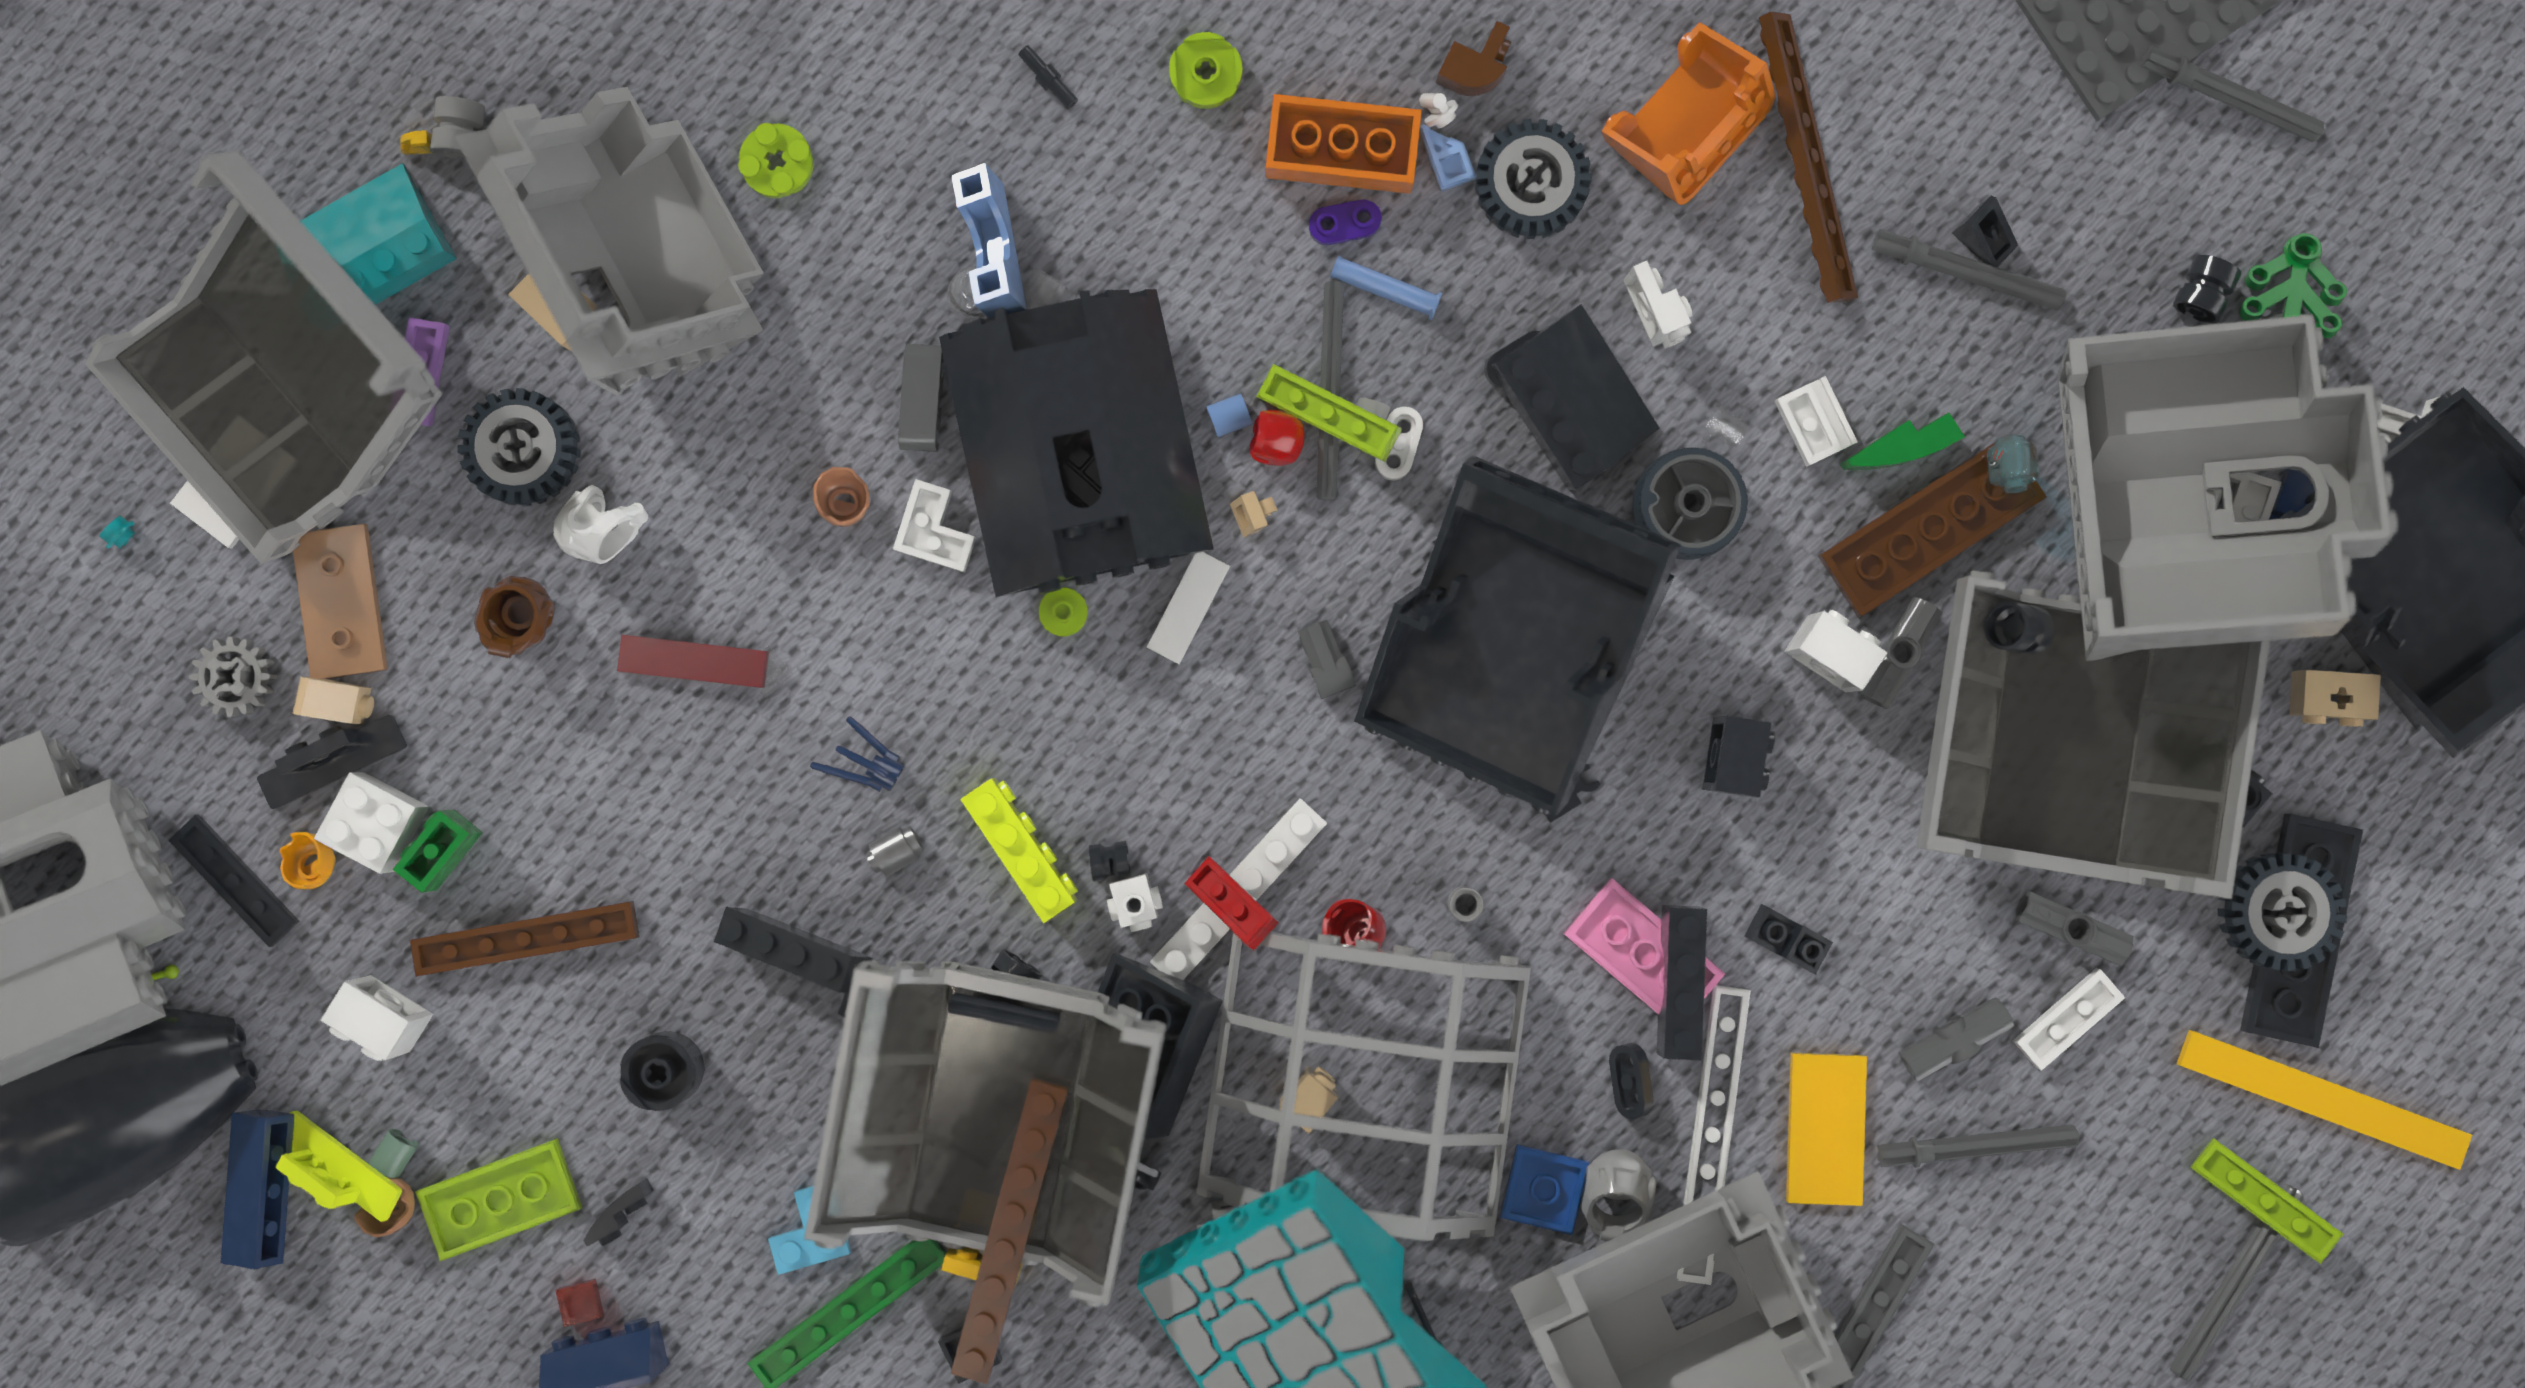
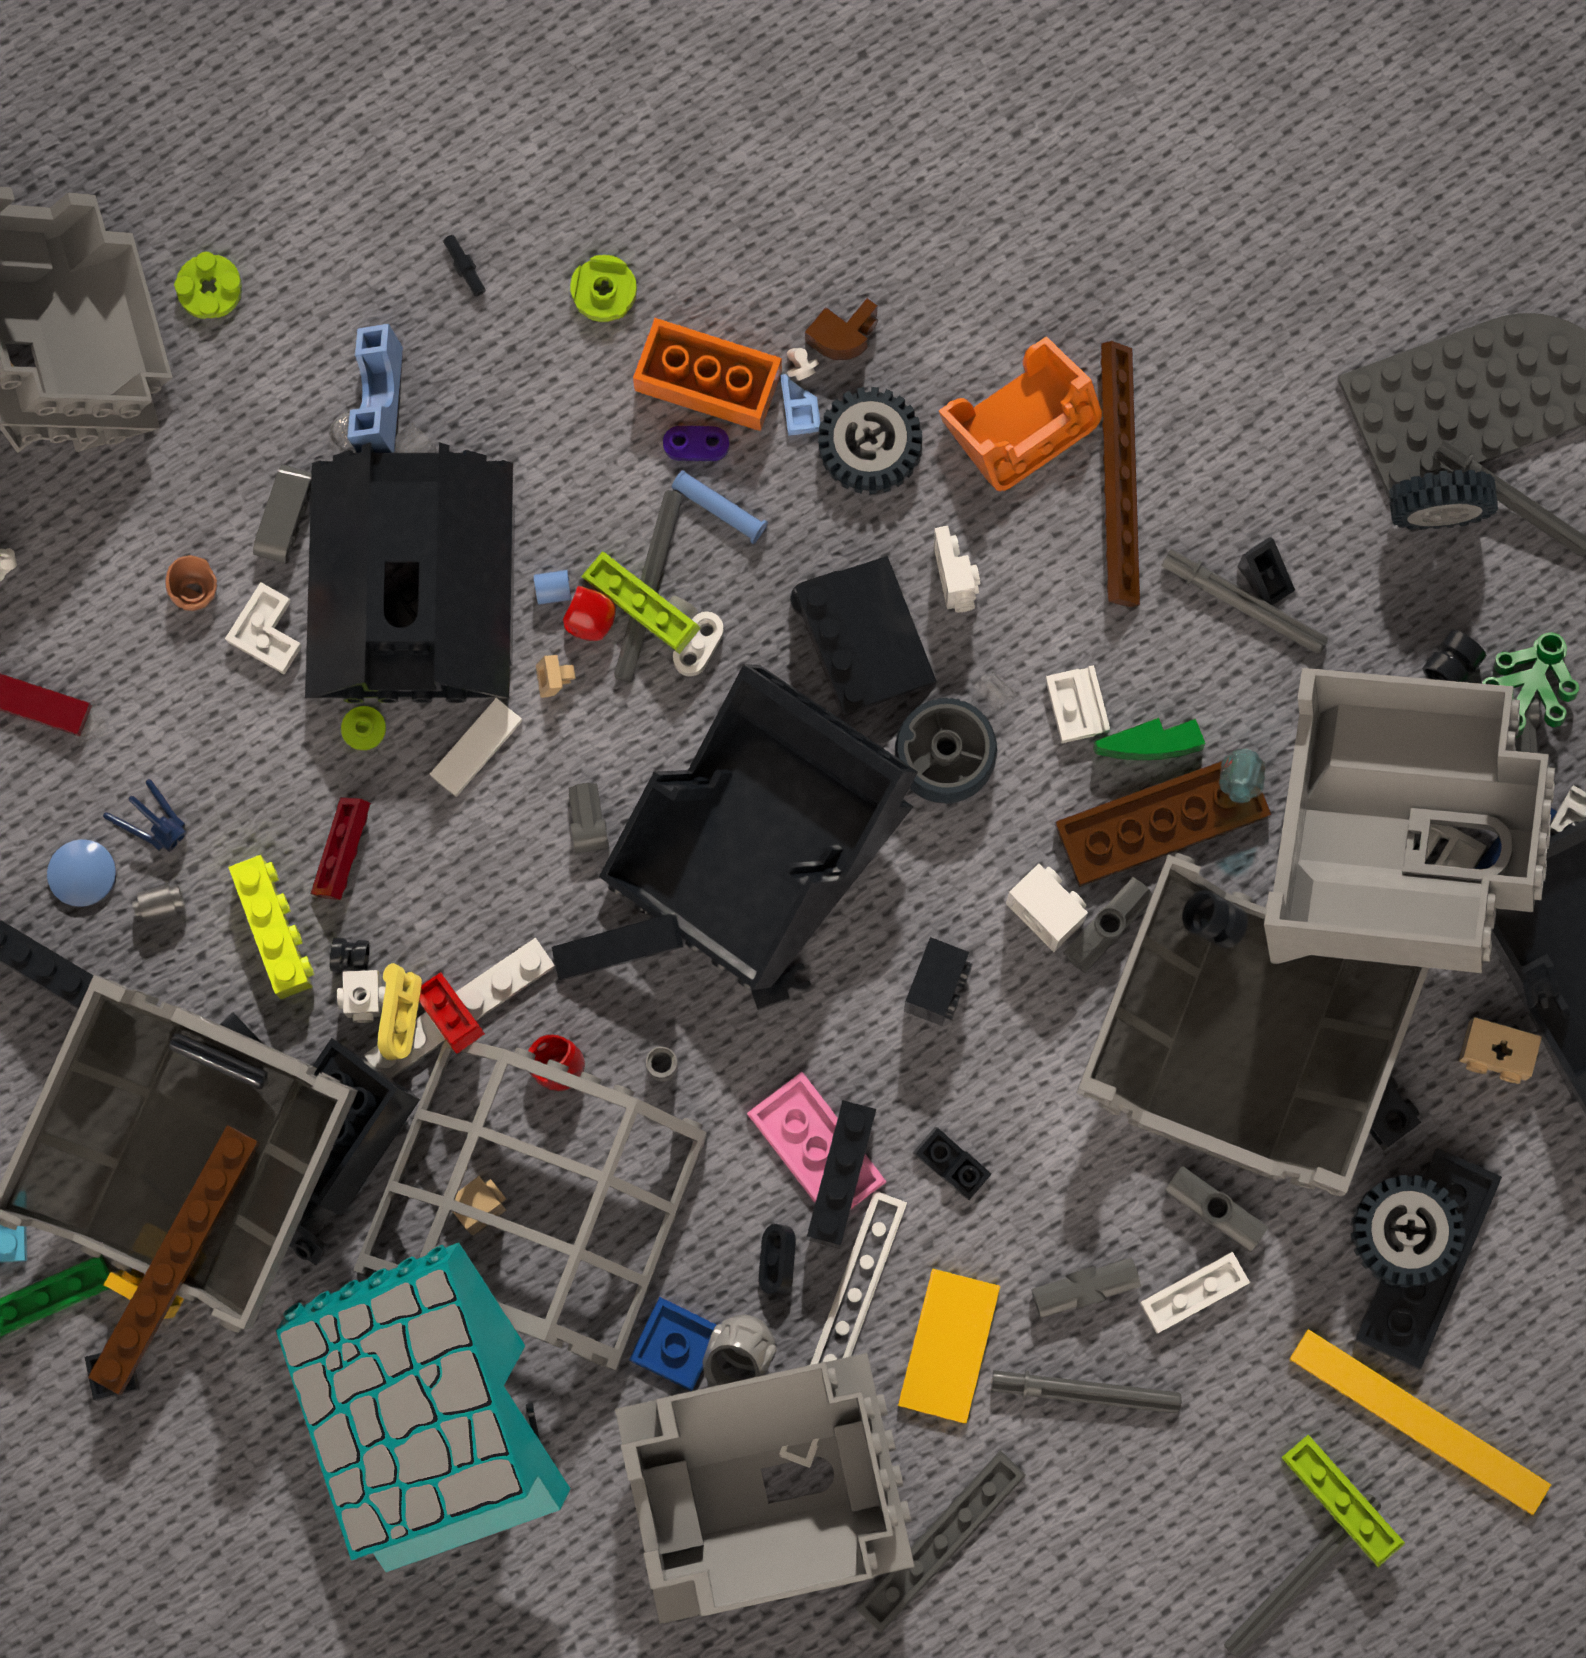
camera: 15 degrees right, 10 degrees down
(803, 834) = (81, 873): none -> medium blue dish
(1072, 748) = (340, 848): none -> dark red plate
(1178, 913) = (398, 1012): none -> light yellow plate
(1393, 793) = (617, 946): none -> black tile
(2169, 114) = (1443, 500): none -> black wheel

